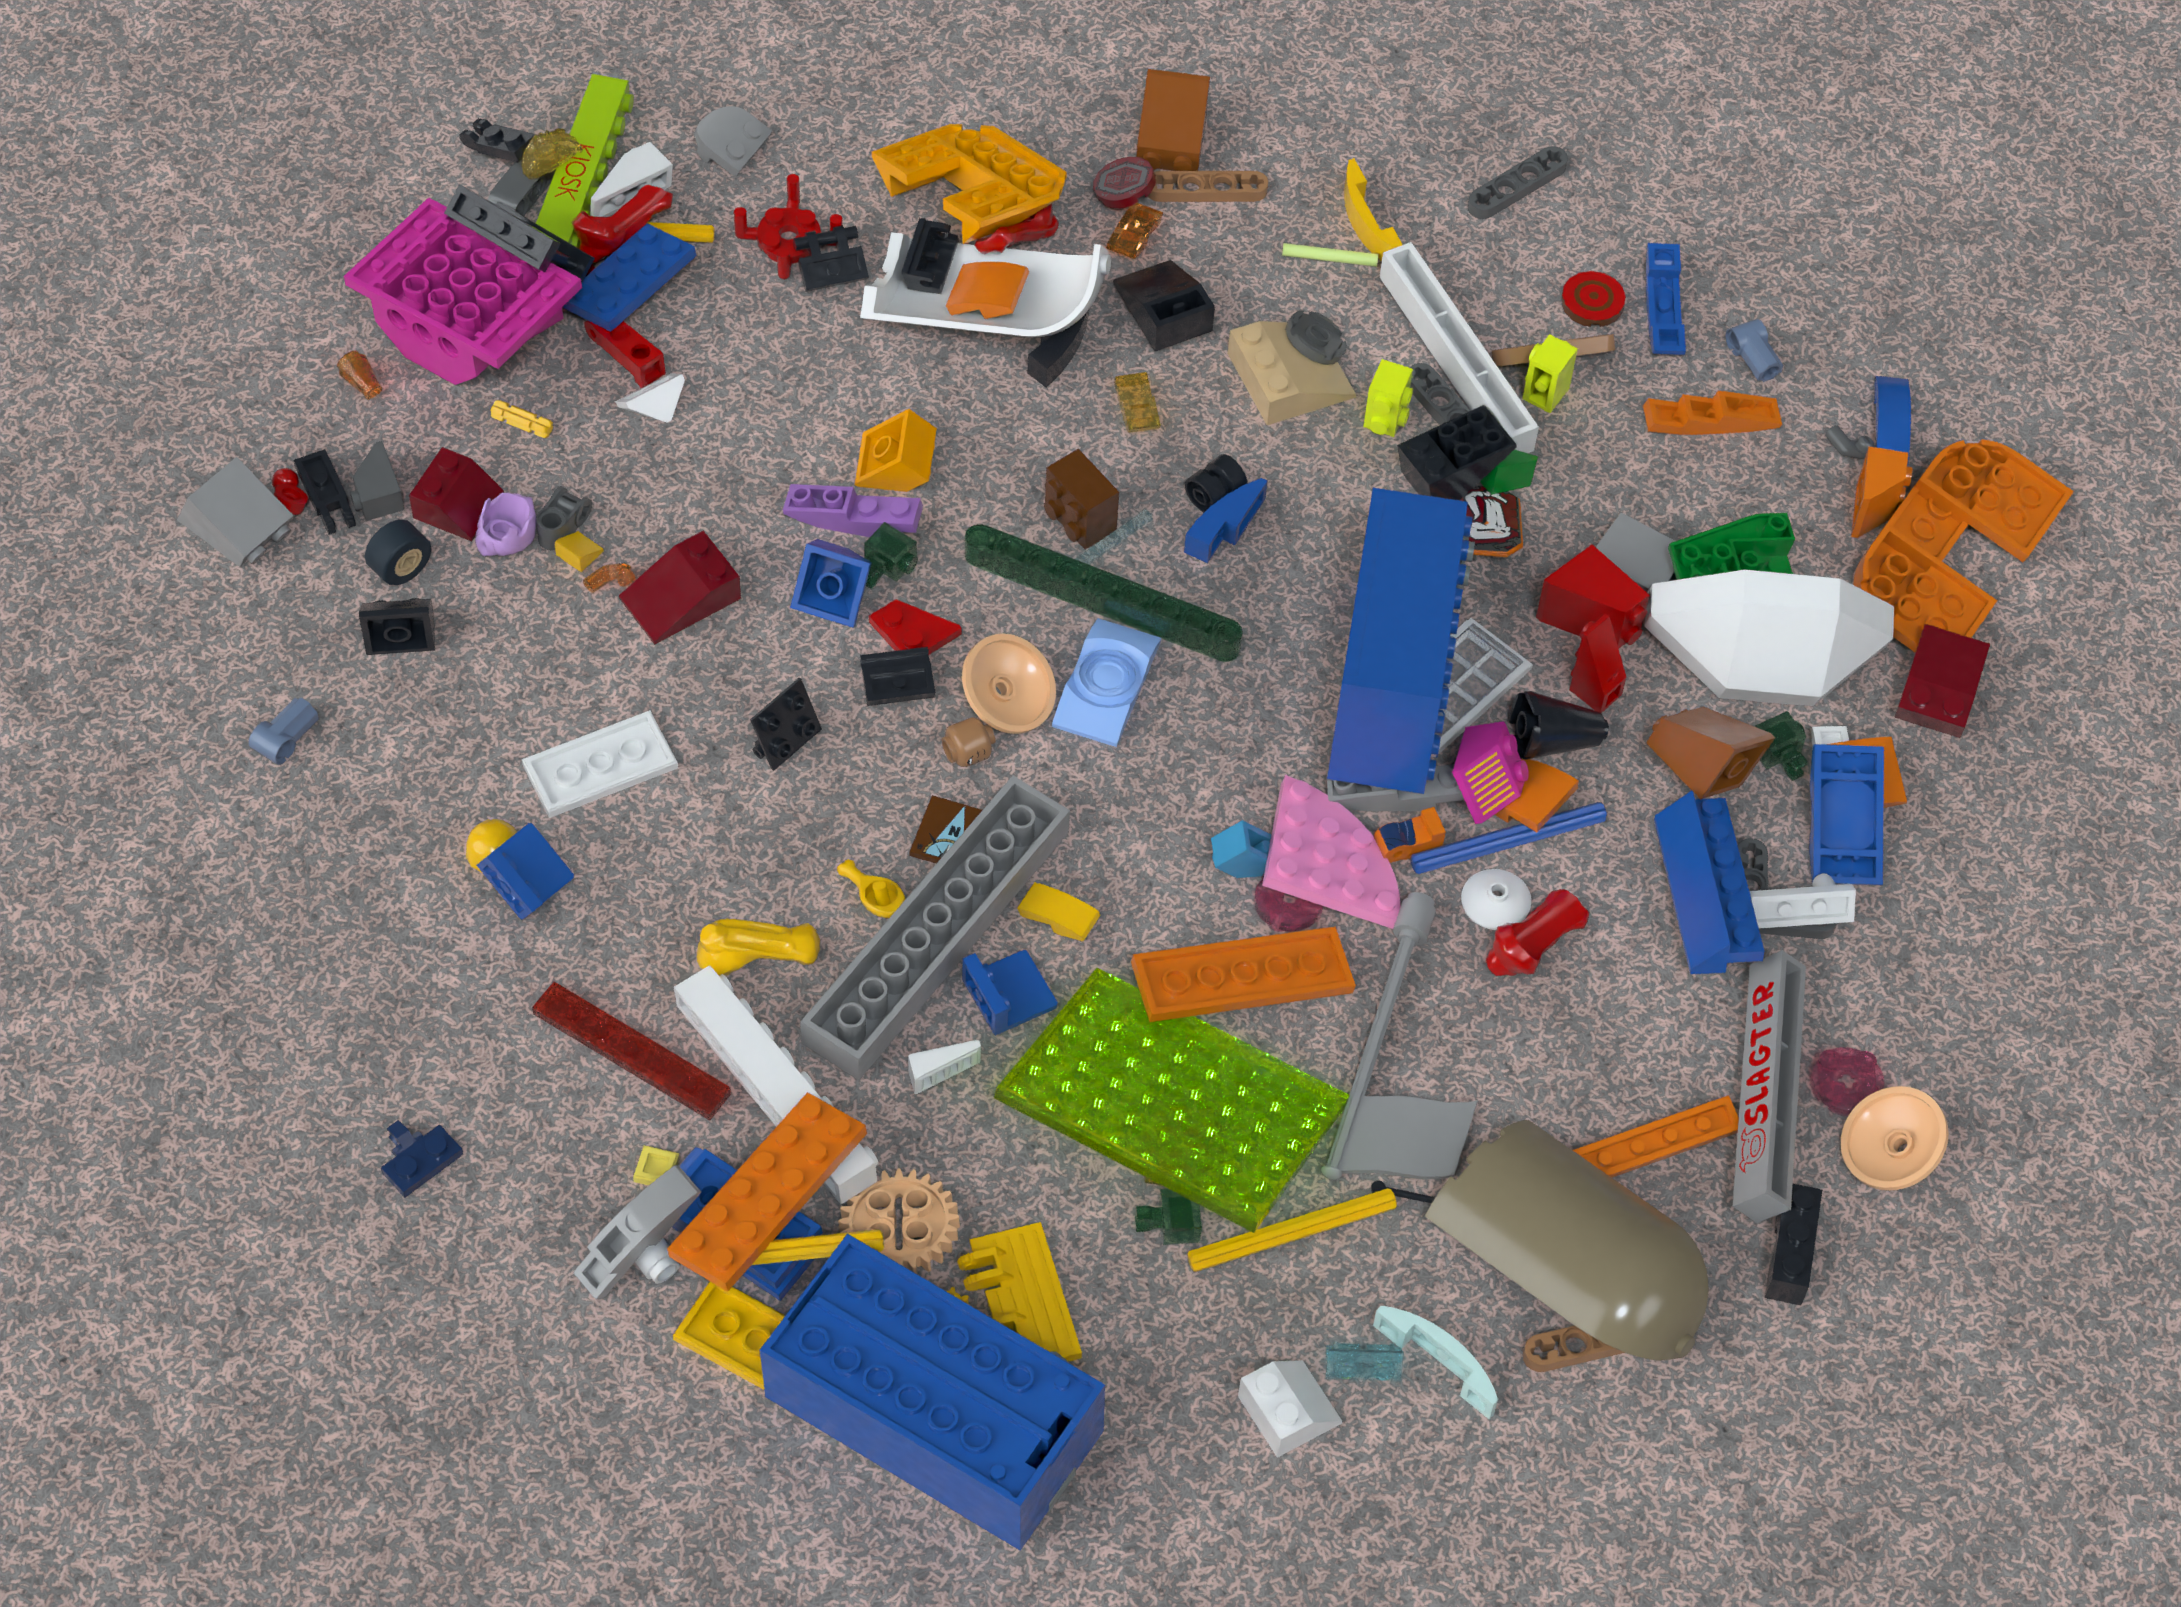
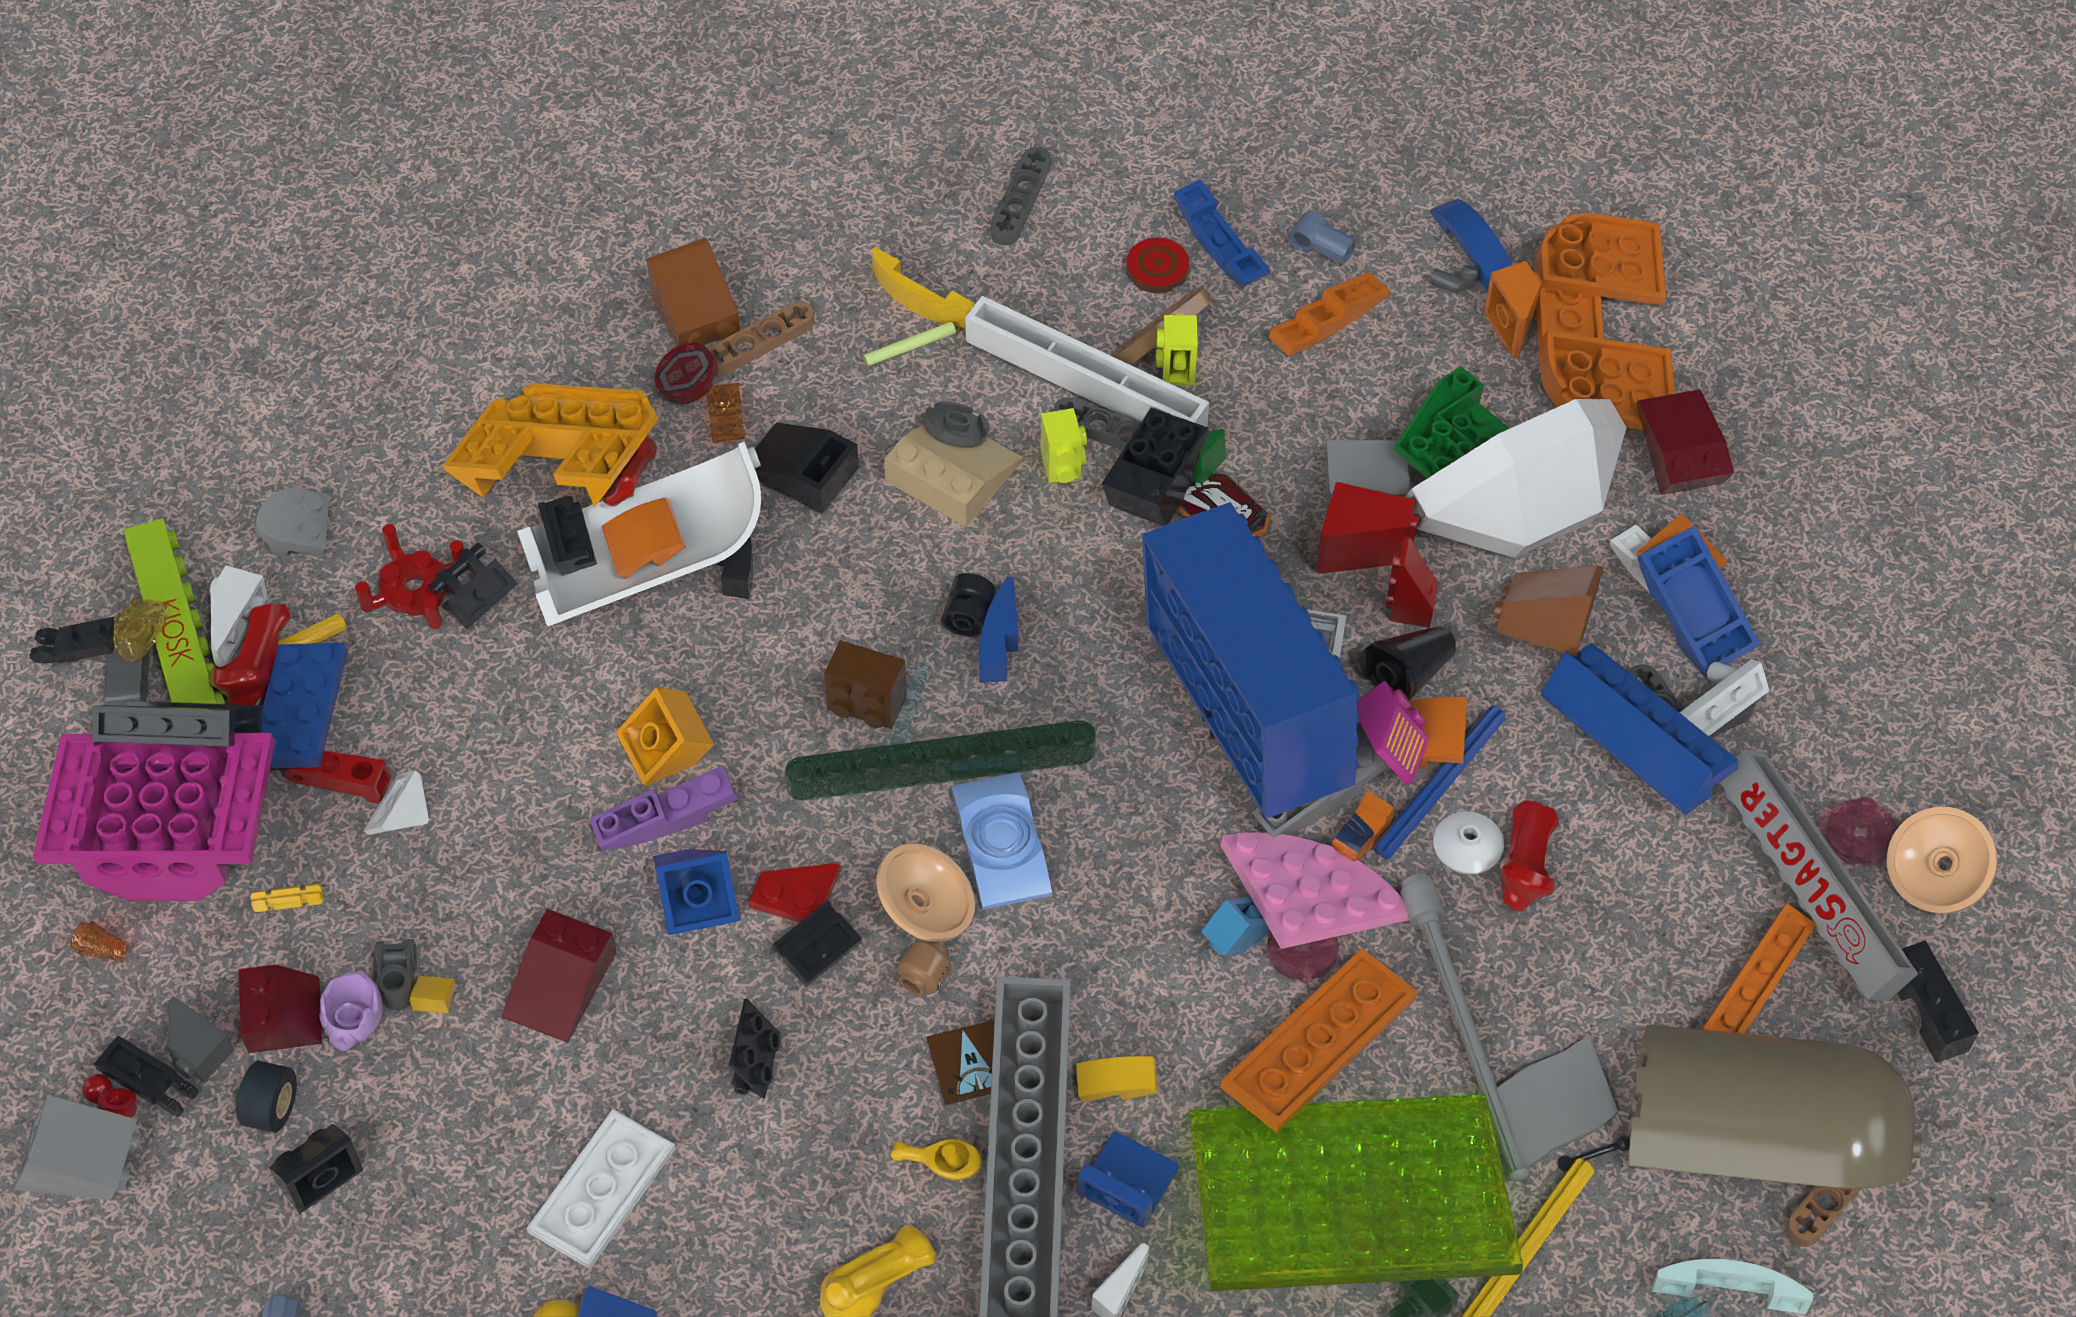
camera: 30 degrees left, 0 degrees up
(608, 573) = (478, 999): clear orange arm -> none
(890, 554) = (728, 830): clear green brick -> none
(1137, 402) = (841, 570): clear yellow slope -> none
(1786, 746) = (1599, 554): clear green brick -> none

